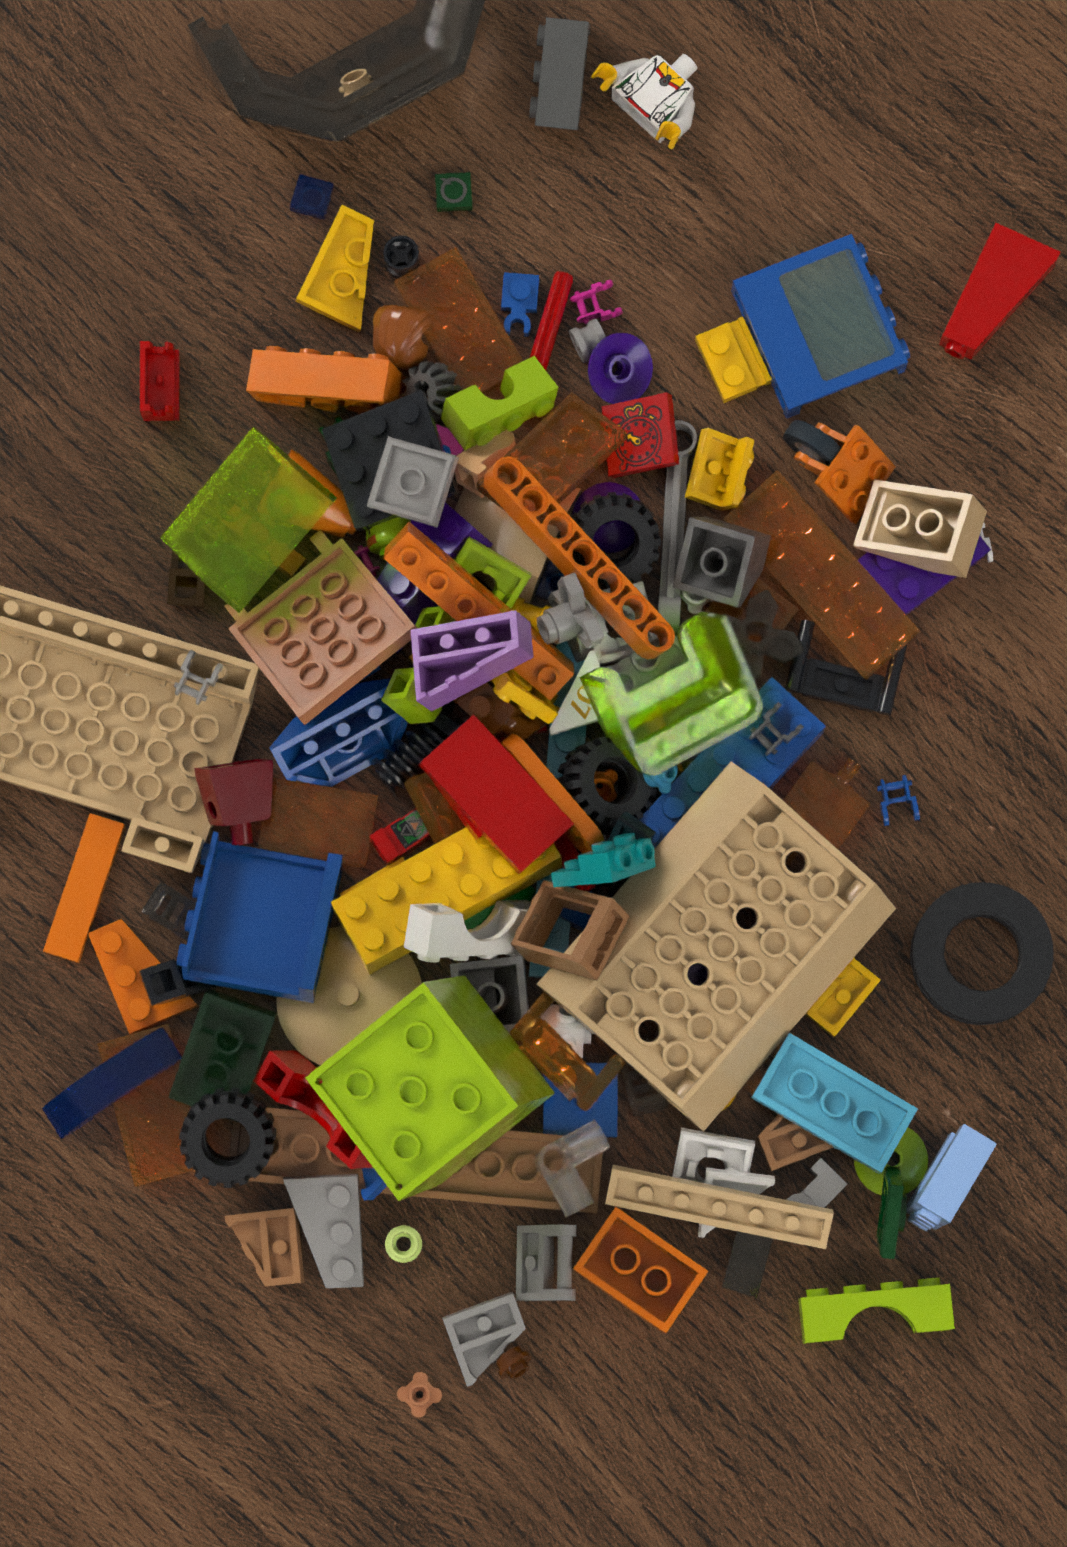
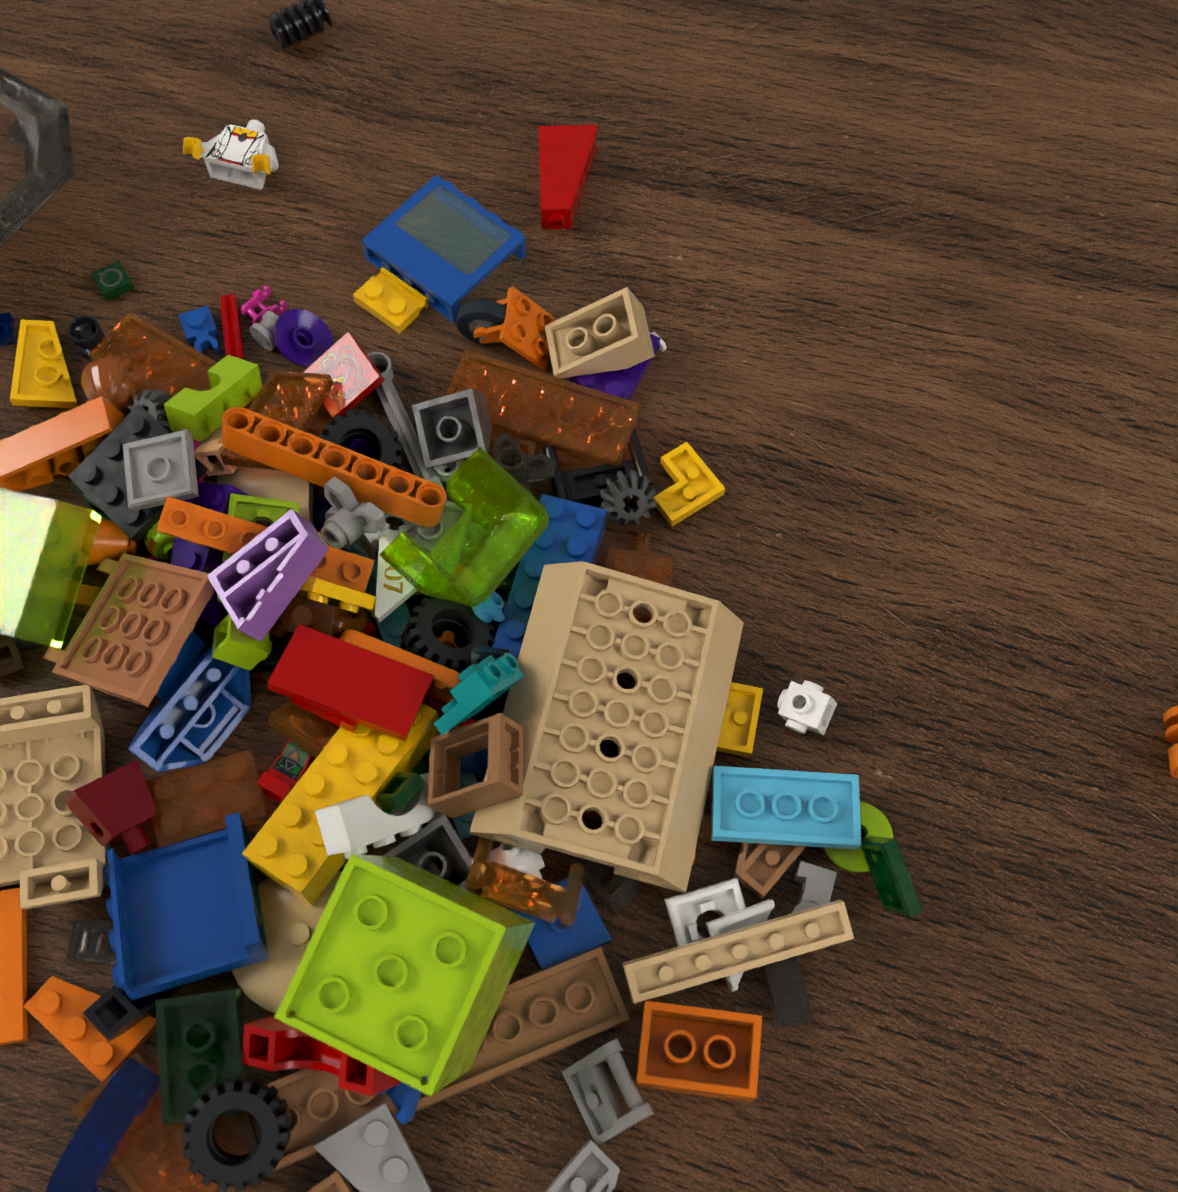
camera: 30 degrees left, 15 degrees down
(199, 695) = (46, 717): light grey piece -> none
(391, 1244) = (451, 1142): yellowish green plate -> none
(408, 756) = (256, 712): black piece -> none
(493, 915) = (400, 791): none -> dark green tile
(560, 73) = (158, 164): dark grey wedge -> none
(575, 1149) = (587, 1003): clear piece -> none
(719, 470) = (419, 372): yellow bracket -> none
(771, 748) = (578, 530): dark grey piece -> none
(856, 721) = (625, 510): none -> dark grey gear
(893, 786) = (701, 541): blue piece -> none
(909, 1020) = (806, 707): none -> white brick
(923, 1307) = (889, 1004): lime arch -> none
(933, 737) = (693, 486): none -> yellow plate
(949, 1178) = (929, 811): light blue arch -> none
(1021, 920) = (851, 590): black tyre -> none

